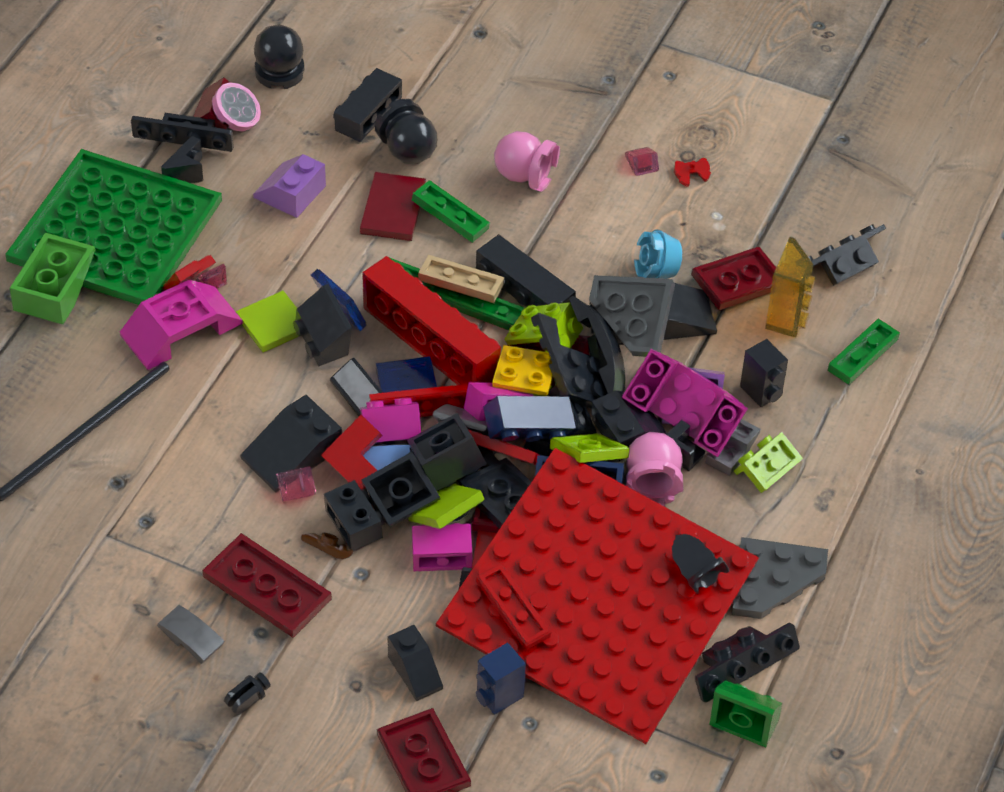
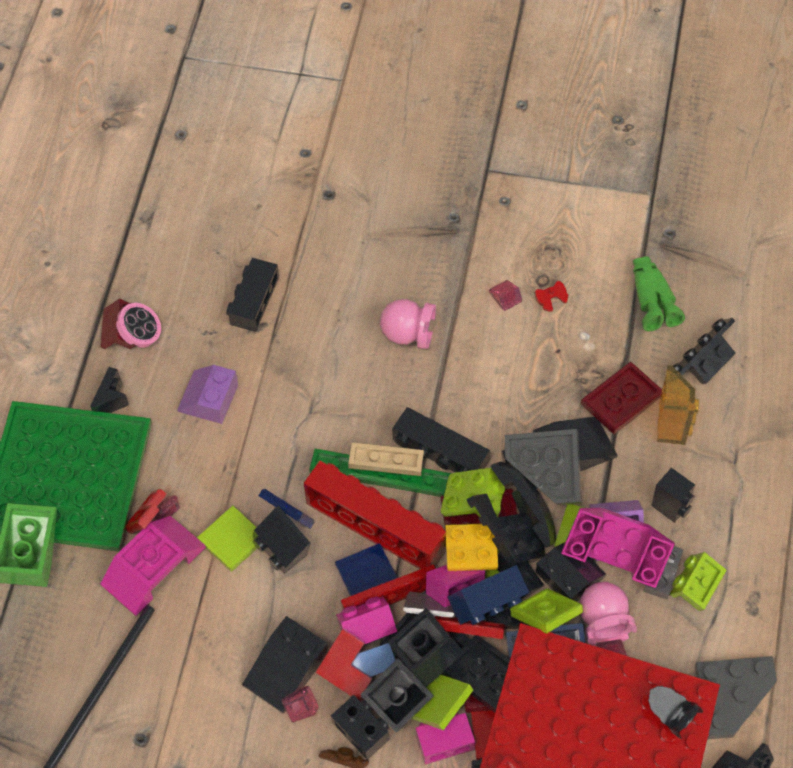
camera: 10 degrees left, 10 degrees up
(179, 128) = (97, 359): black bracket -> none
(279, 57) = (162, 265): black tile -> none
(354, 384) = (324, 590): flat silver slope -> none
(390, 207) = (303, 393): dark red tile -> none
(407, 132) = (298, 319): black tile -> none
(450, 211) = (356, 389): green plate -> none
(658, 256) = (550, 396): medium azure cone -> none
(690, 451) = (623, 581): black panel -> none
(805, 190) = (655, 295): none -> bright green piece
(863, 351) = (747, 448): green plate -> none

